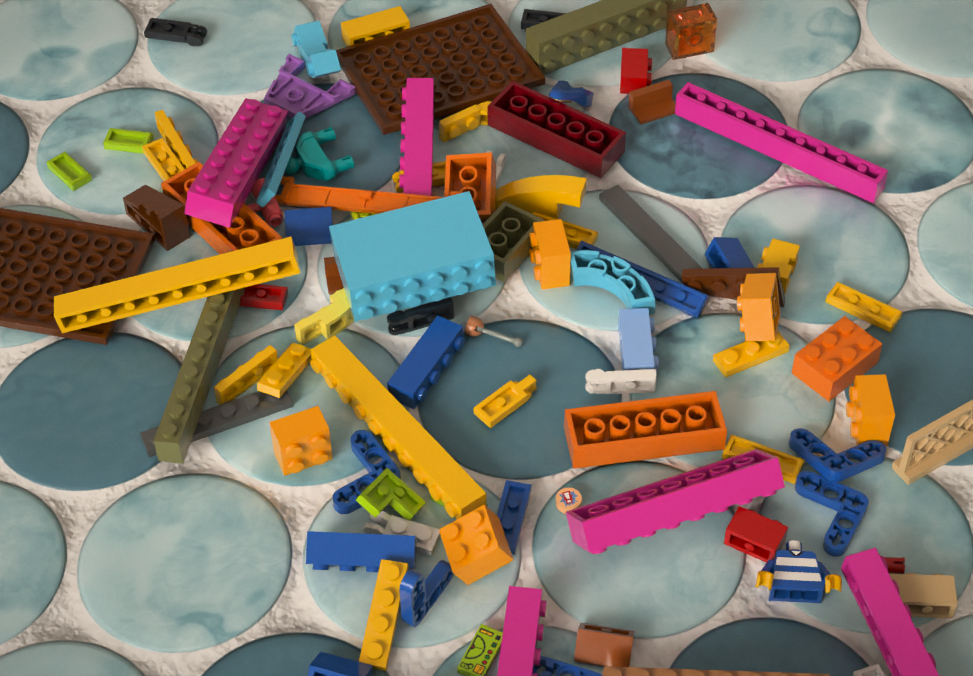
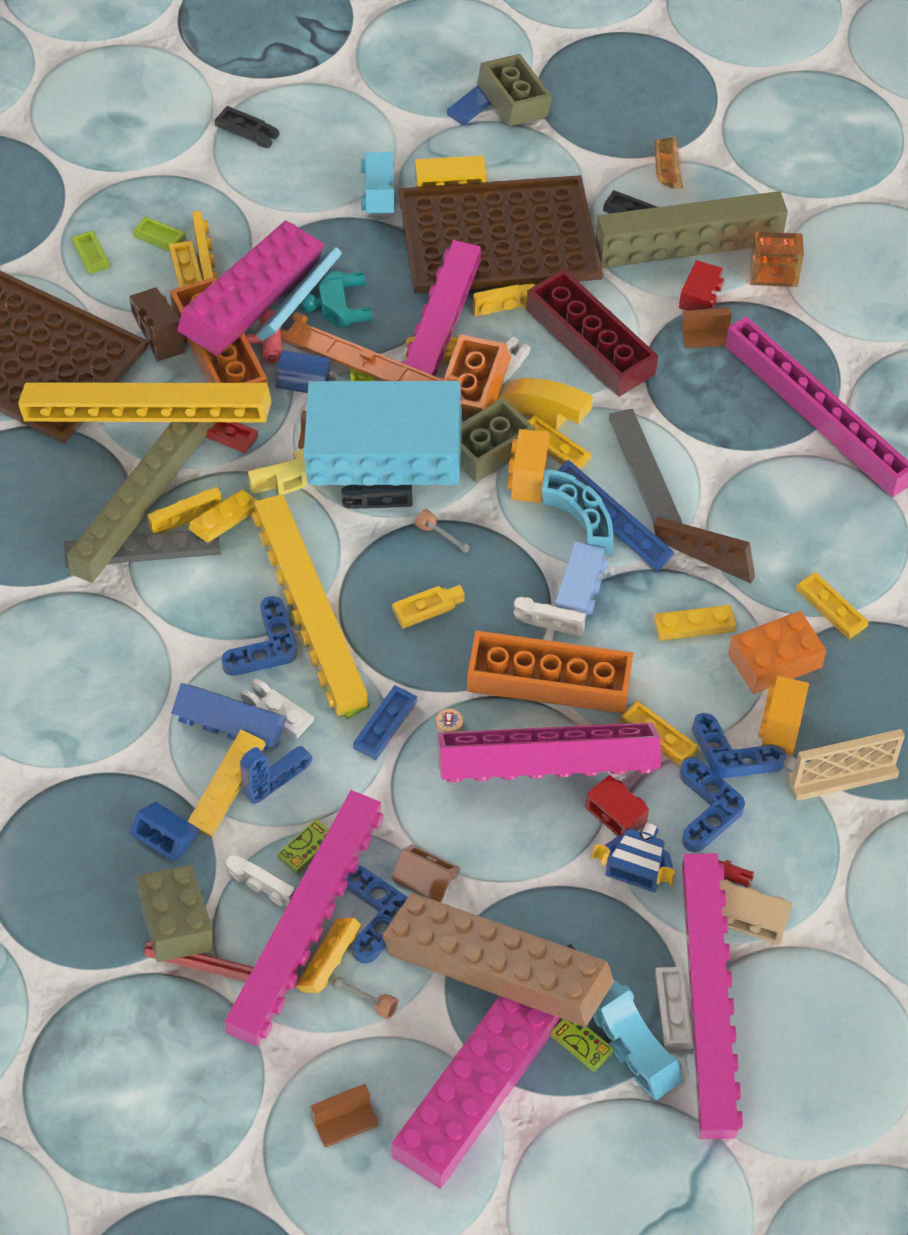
camera: 15 degrees right, 5 degrees up
(300, 96) = (343, 228): medium lavender wing -> none
(301, 440) = (210, 591): light orange brick -> none
(393, 491) = (276, 664): lime plate -> none
(426, 362) = (364, 544): blue brick -> none
(476, 544) = (337, 740): light orange brick -> none
(566, 94) = (616, 295): blue animal -> none
(727, 253) = (713, 514): blue brick -> none
(759, 307) = (716, 578): light orange brick -> none
(781, 255) = (764, 533): yellow brick -> none

